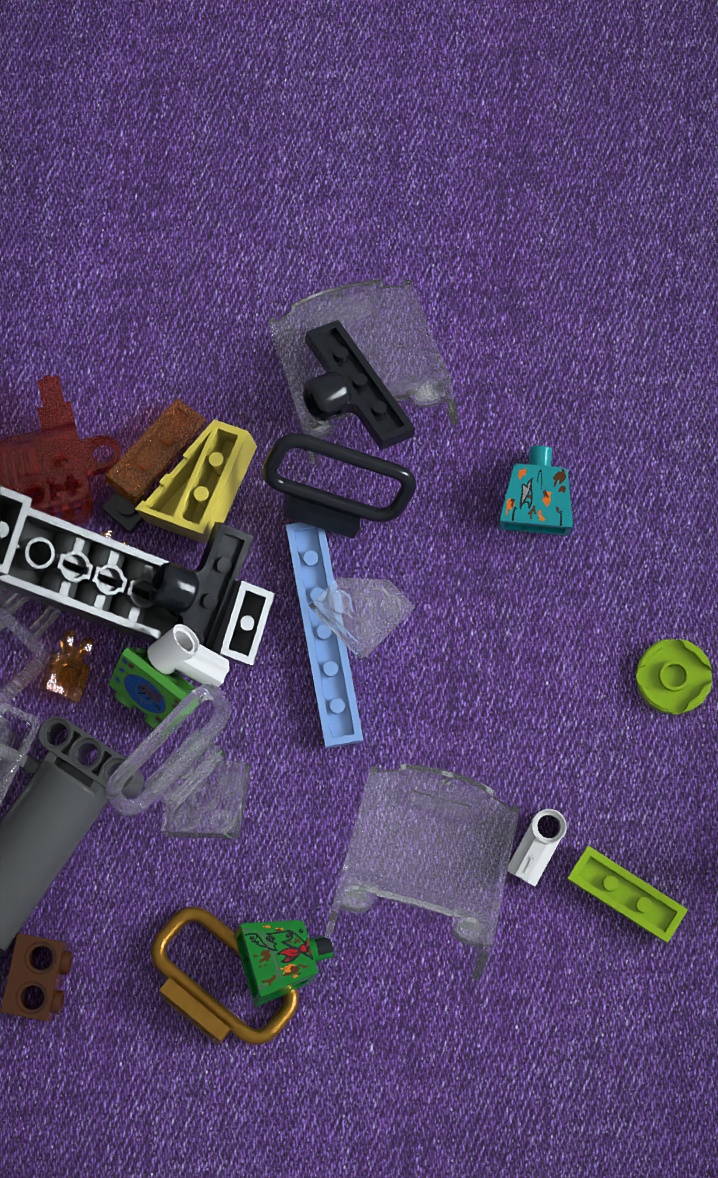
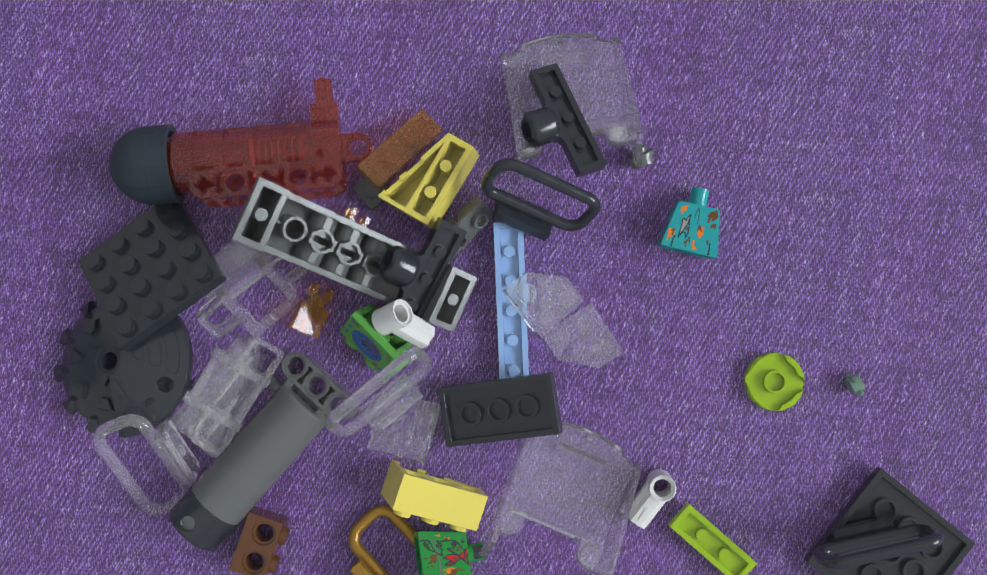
camera: 10 degrees right, 10 degrees up
(256, 882) = (433, 498): none -> light yellow wedge
(262, 522) = (473, 217): none -> dark grey hinge
(325, 755) = (500, 410): none -> black plate
(420, 656) = (583, 339): none -> clear plate
(465, 417) = (647, 157): none -> dark grey plate

